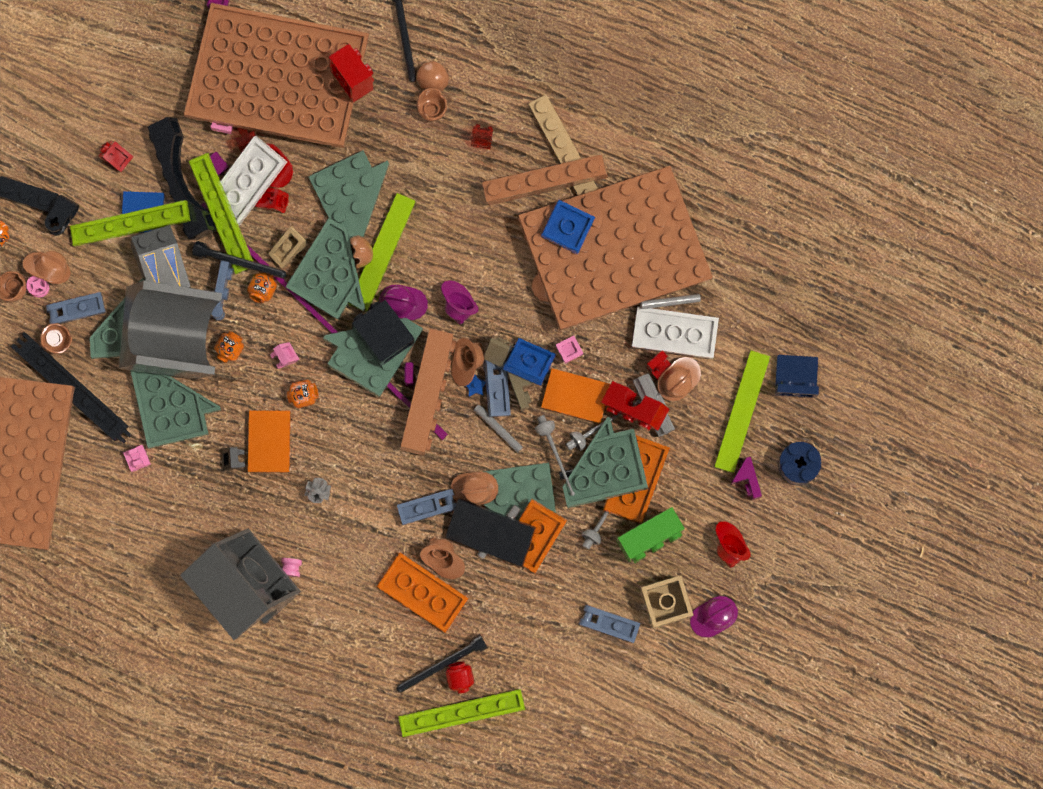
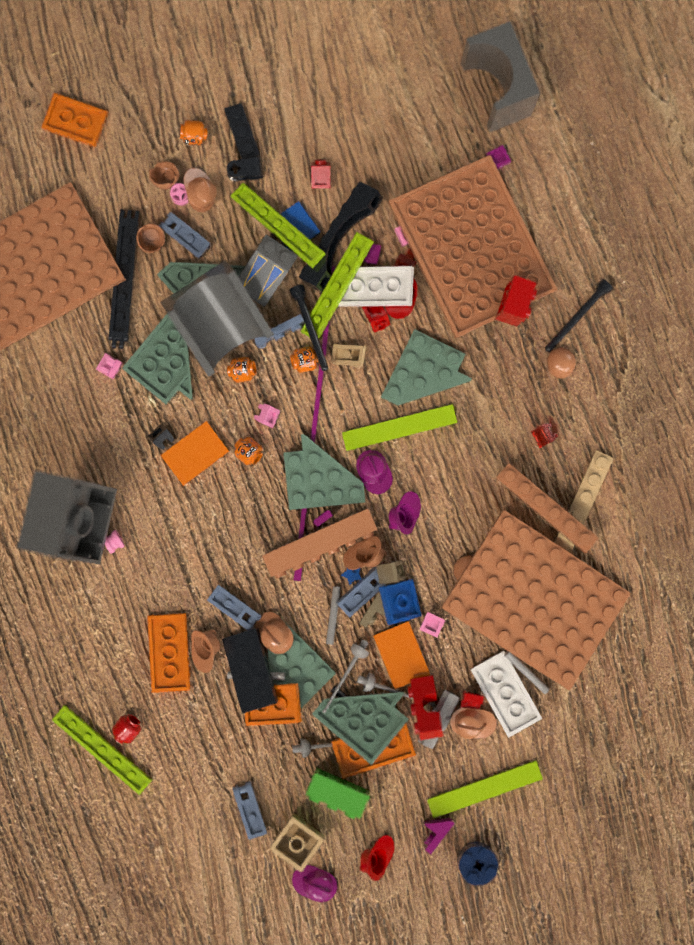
camera: 55 degrees right, 5 degrees up
(317, 490) = (184, 518): light grey gear -> none
(329, 272) = (353, 400): sand green wing -> none
(362, 251) = (388, 412): nougat hair -> none
(382, 332) = (337, 475): black brick -> none
(431, 104) = (539, 378): nougat hair -> none
(476, 645) = (160, 723): black piece -> none
(568, 227) = (523, 554): blue tile -> none
(796, 376) = (542, 810): dark blue bracket -> none

